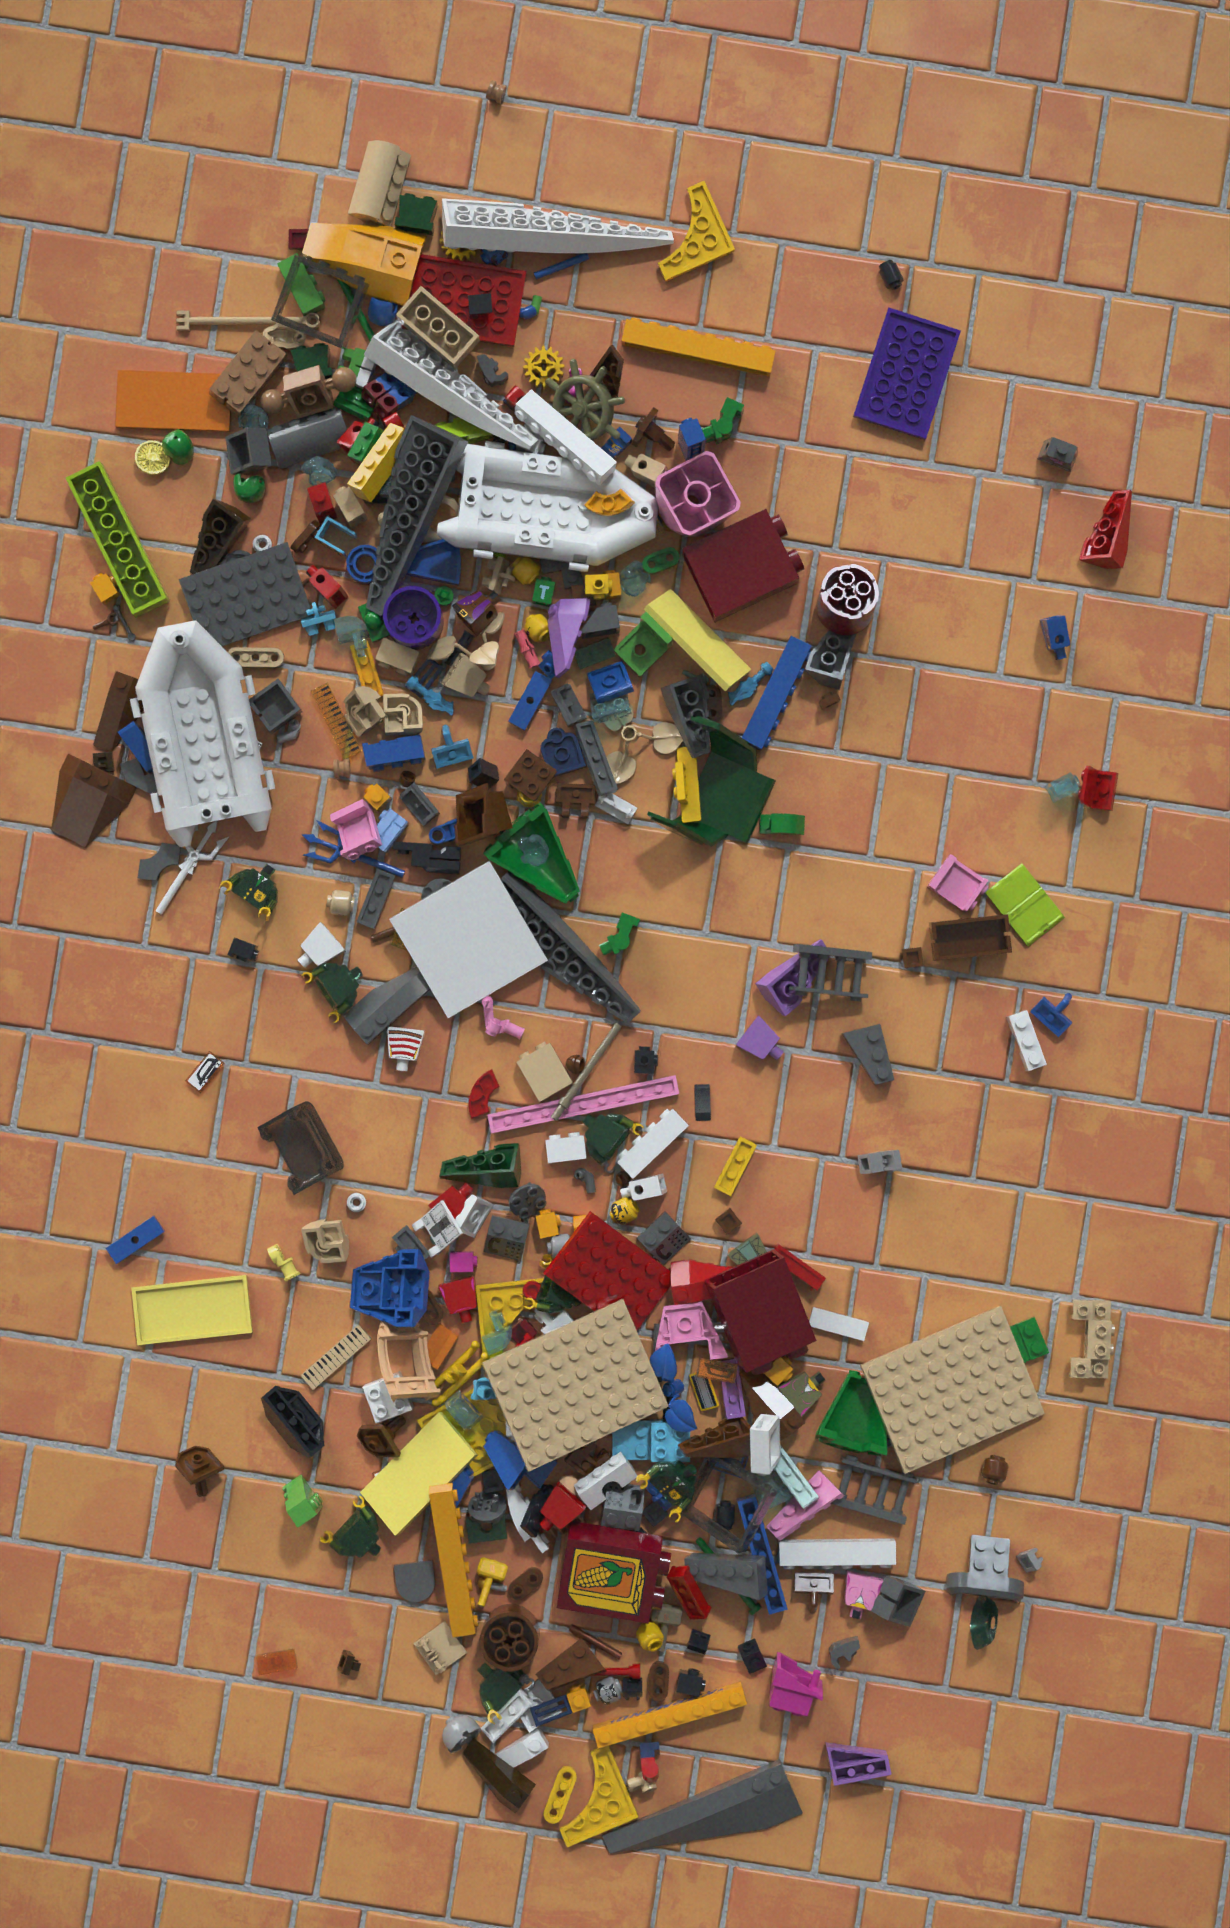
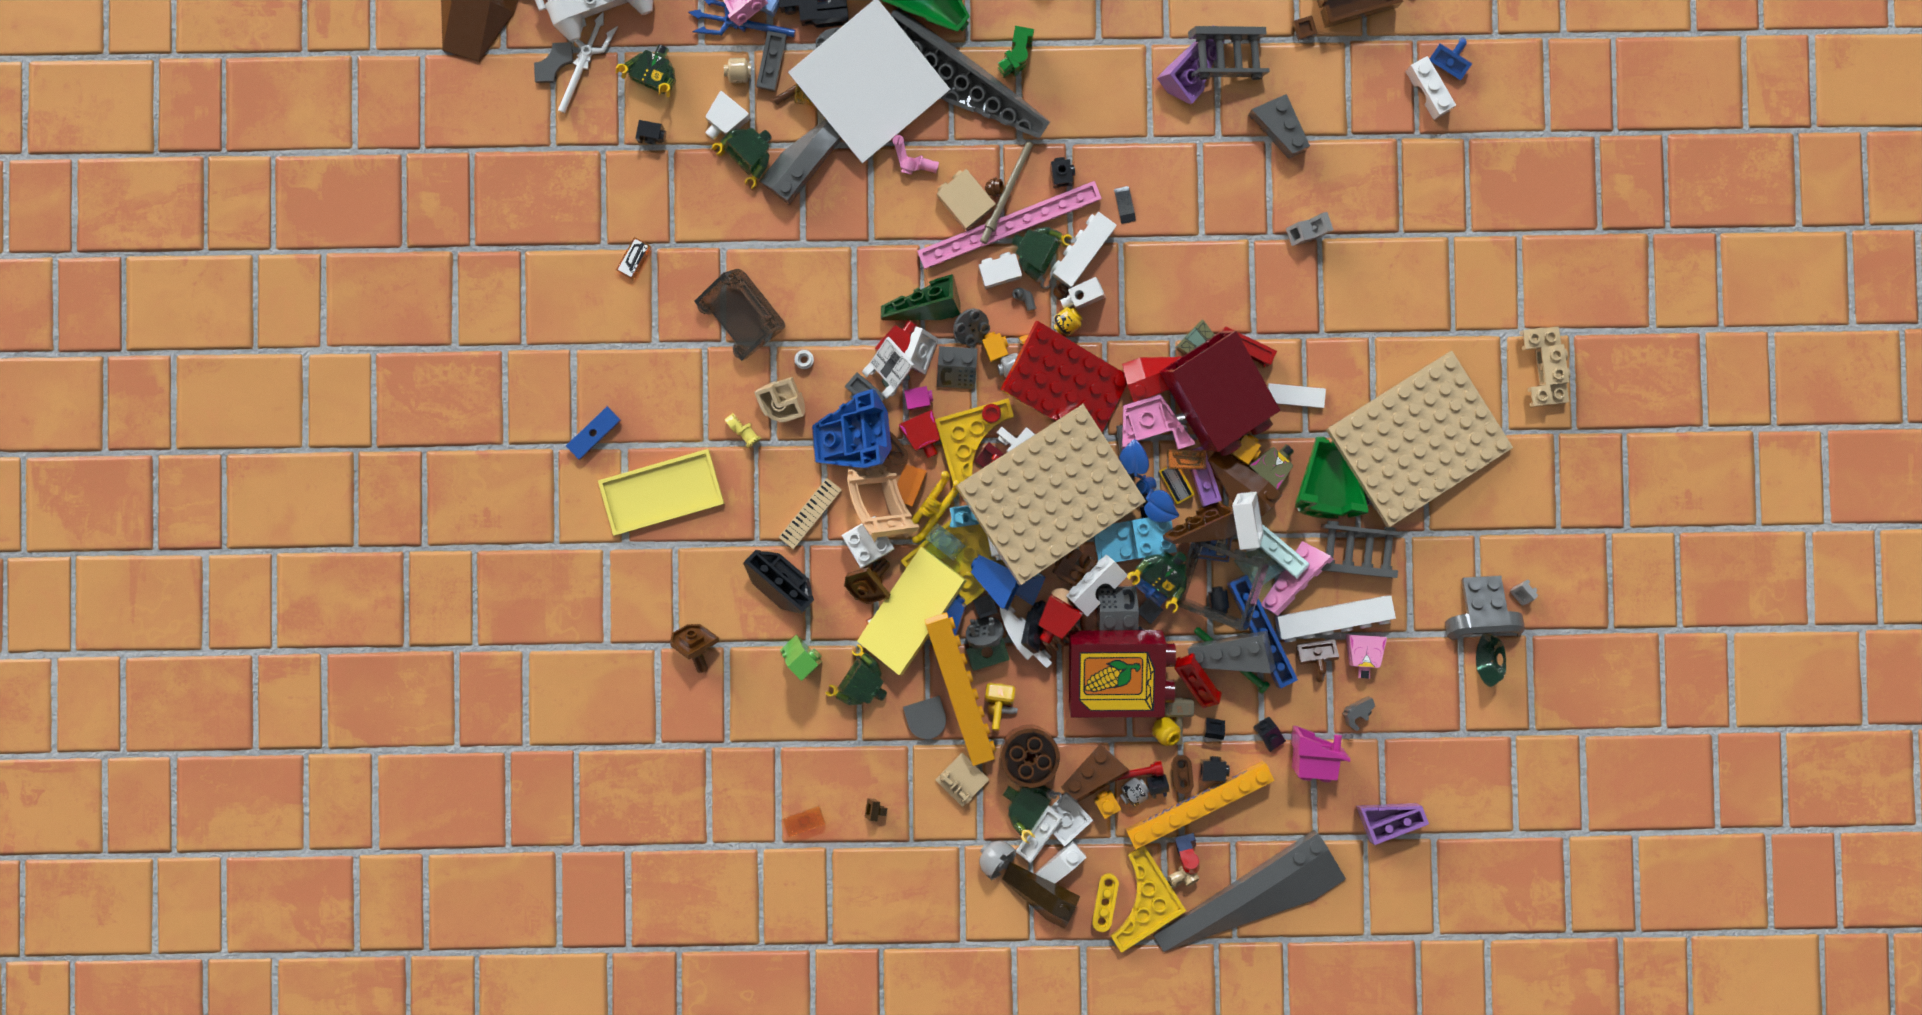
camera: 15 degrees left, 0 degrees up
(404, 1045) = (824, 197): white torso -> none
(481, 1092) = (907, 233): red tile -> none
(500, 1338) = (968, 464): clear light blue brick -> none
(524, 1582) = (1034, 701): reddish brown plate -> none
(551, 1296) = (1012, 413): clear green torso -> none
(566, 1704) = (1096, 812): dark blue tile -> none
(594, 1641) = (1113, 747): copper bar -> none
(663, 1237) = (1111, 340): dark grey slope -> none
(728, 1221) = (1171, 314): reddish brown plate -> none
(735, 1166) = (1168, 259): yellow plate -> none
(760, 1040) = (1171, 133): medium lavender torso -> none
(898, 1601) = (1404, 653): dark grey piece -> none
(995, 1469) = (1474, 510): reddish brown head -> none
(1029, 1339) = (1485, 378): green plate -> none

